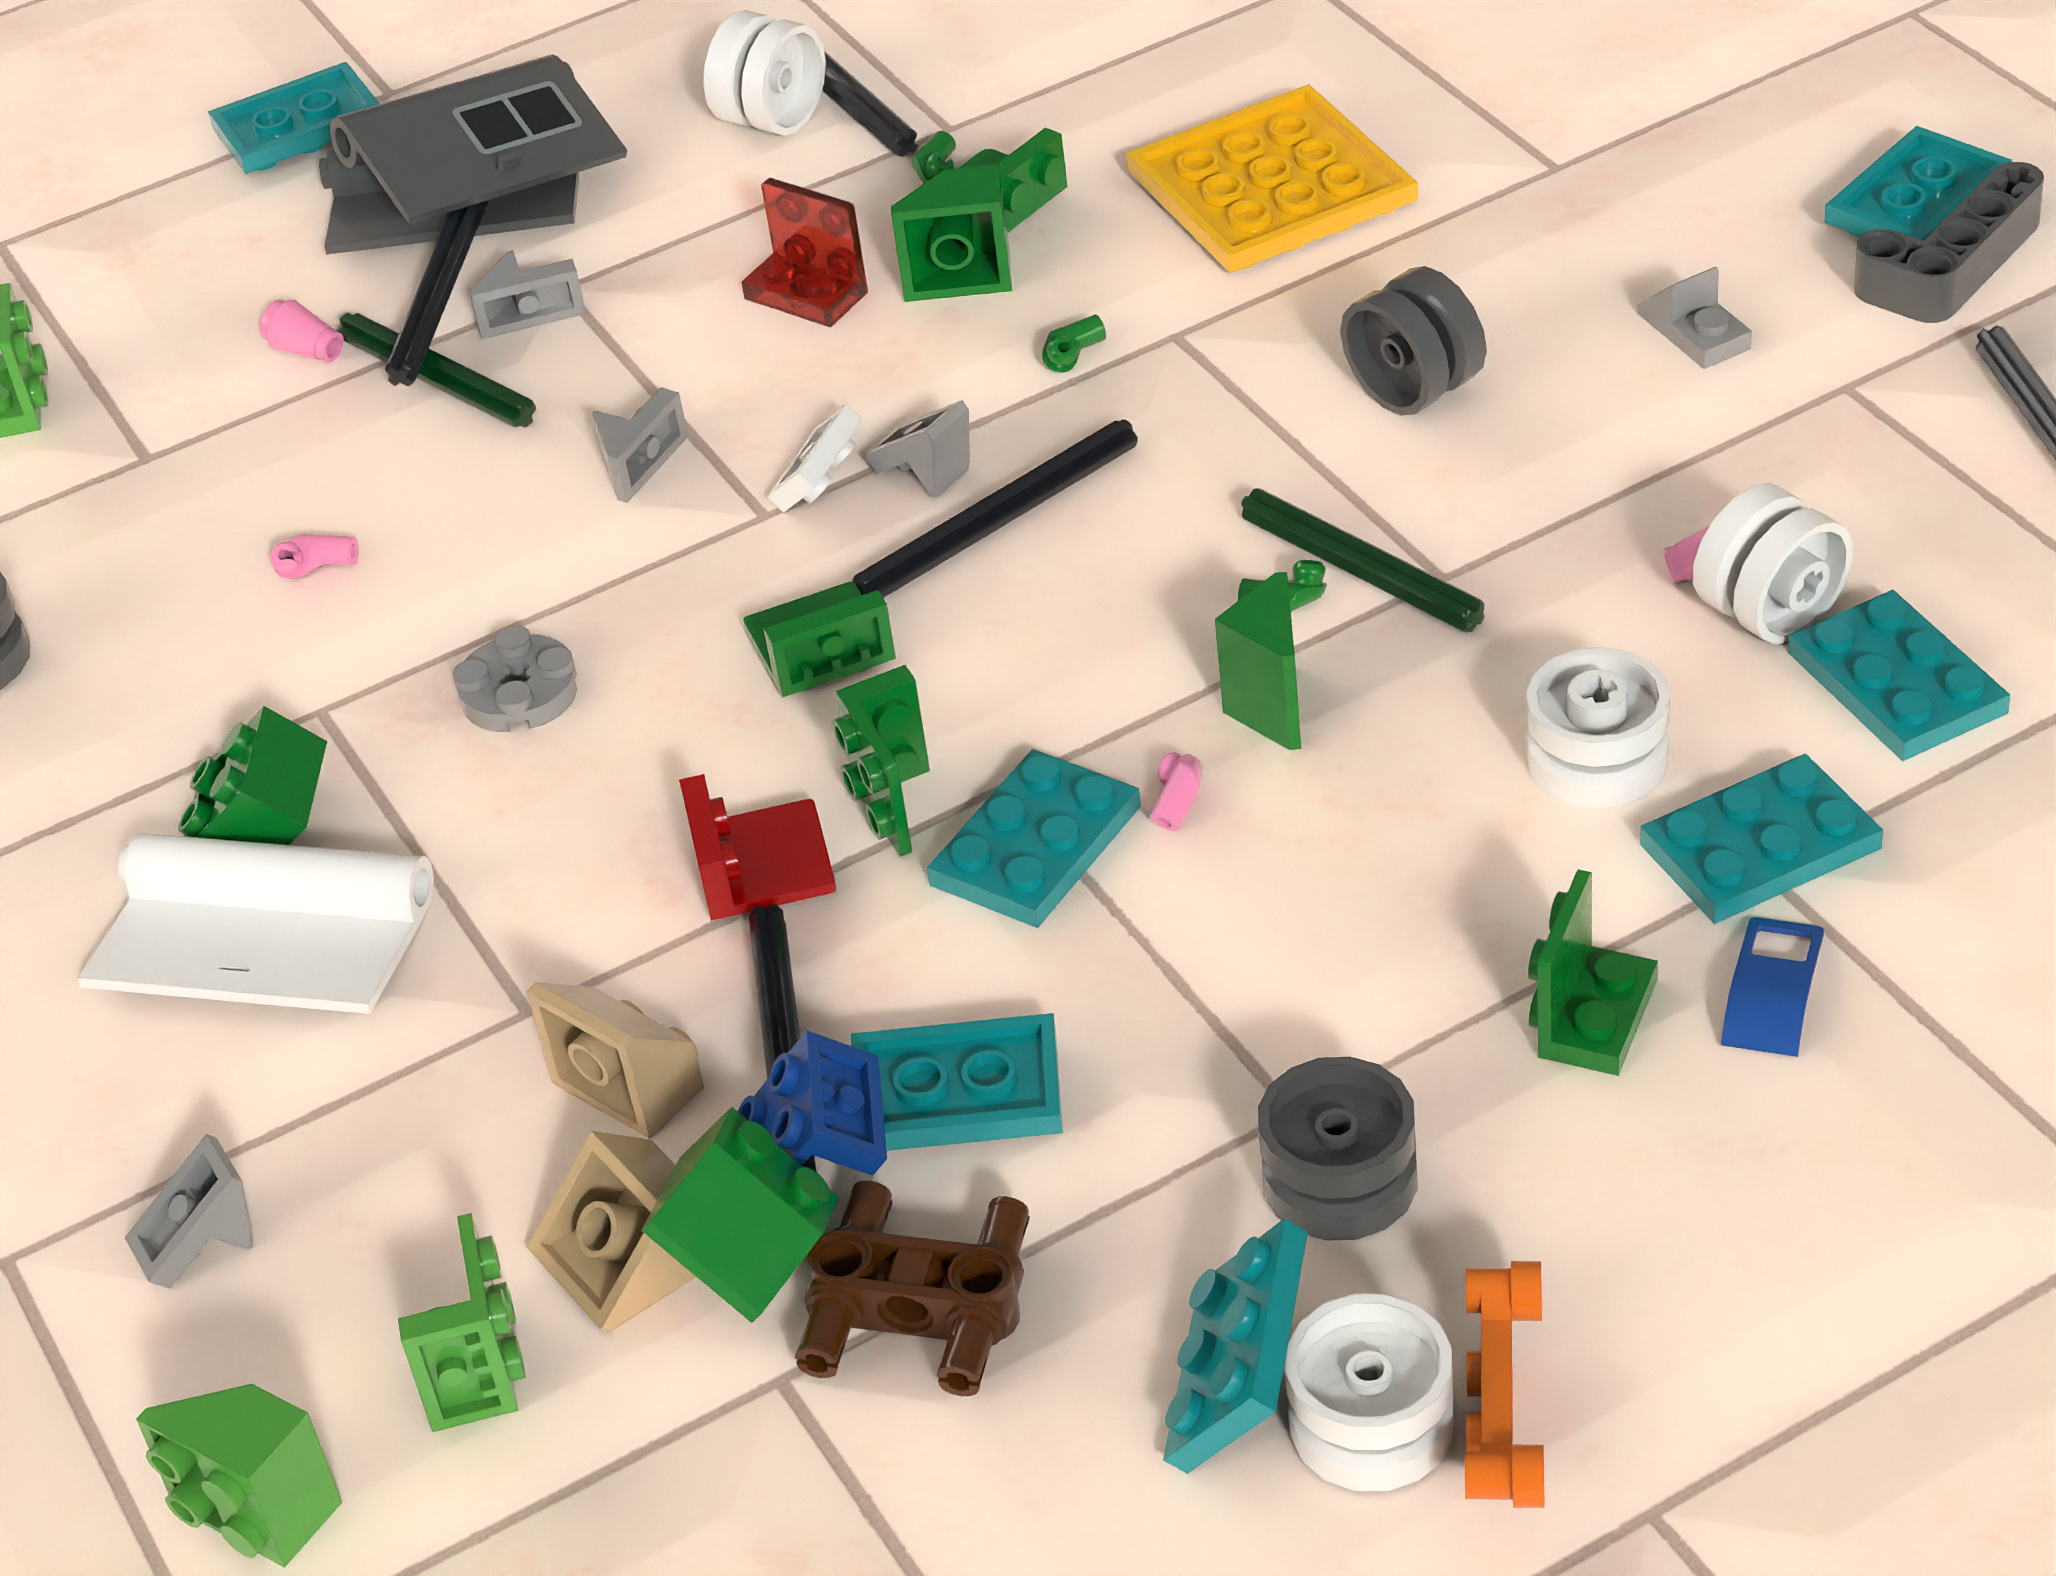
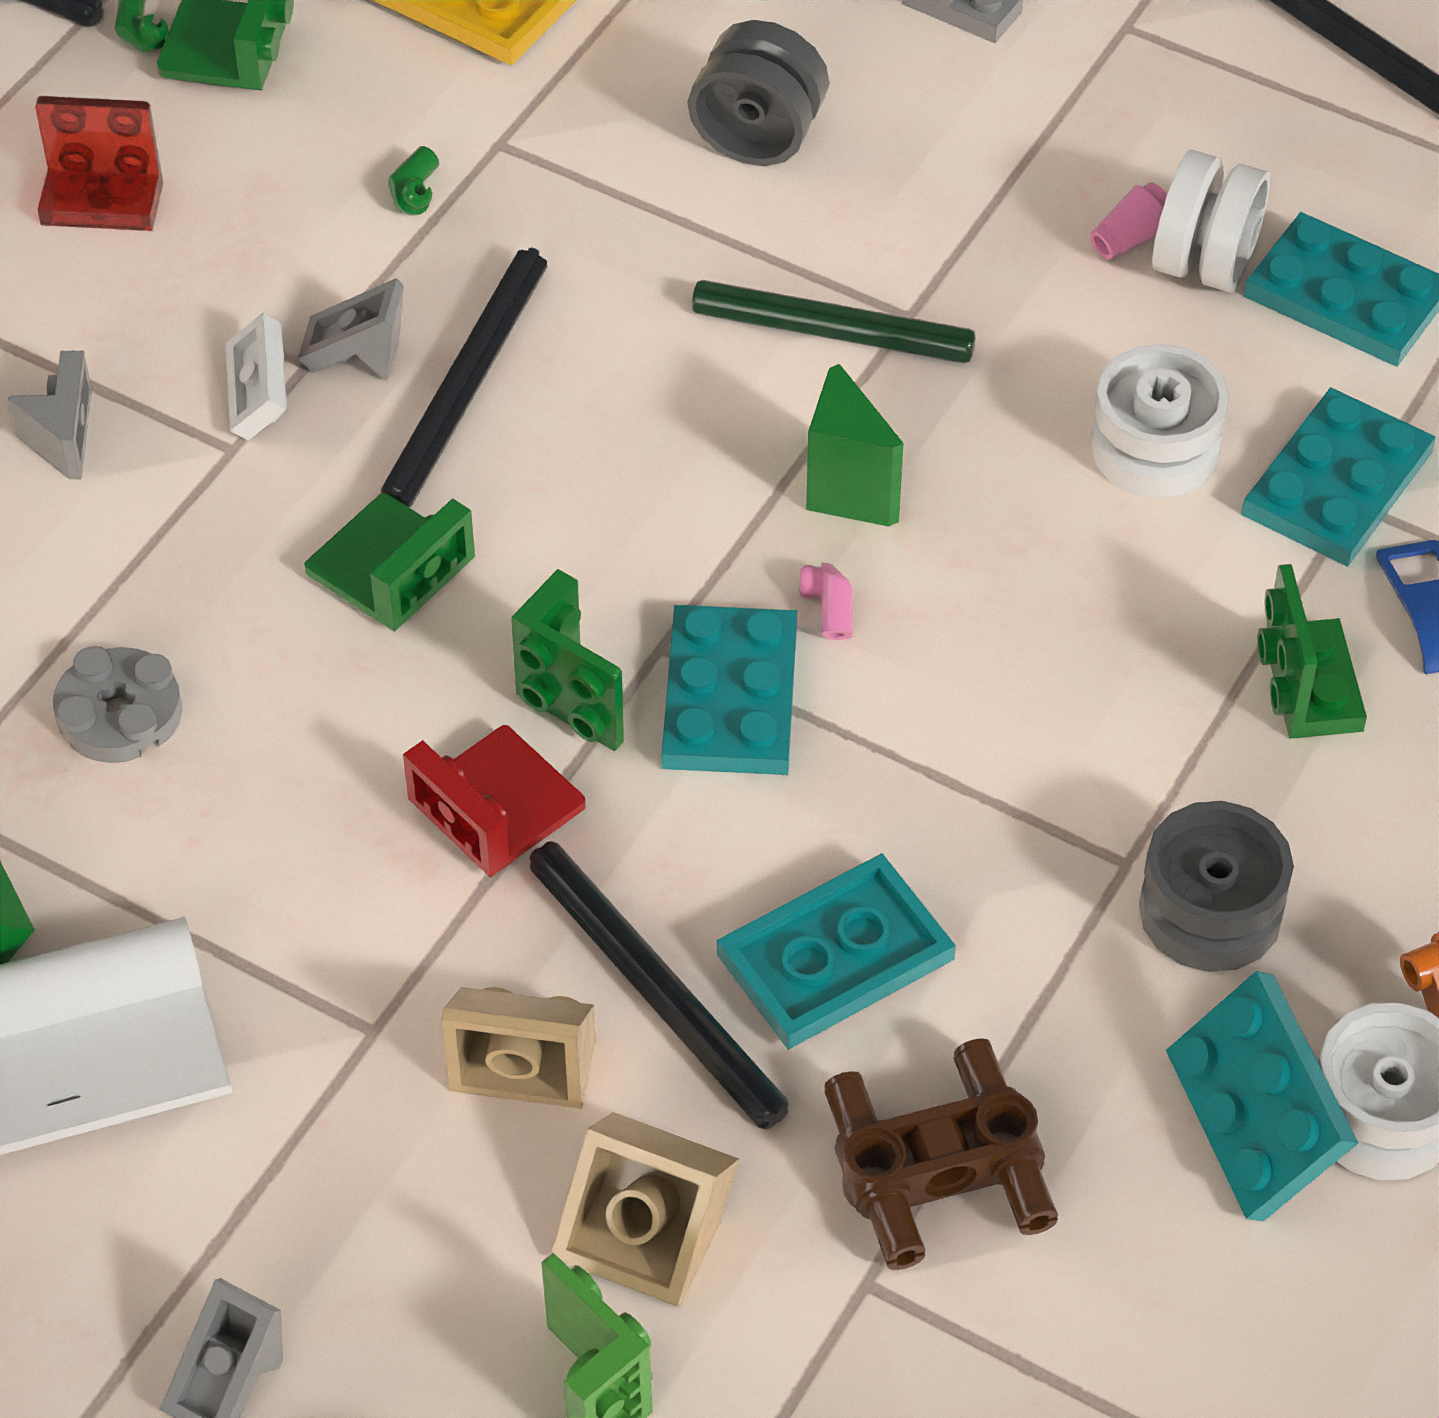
camera: 35 degrees left, 10 degrees up
(740, 1213) = (771, 1148): green slope -> none
(823, 1104) = (743, 1041): blue bracket -> none
(953, 236) = (246, 101): green slope -> none
(1303, 589) = (792, 377): green arm -> none

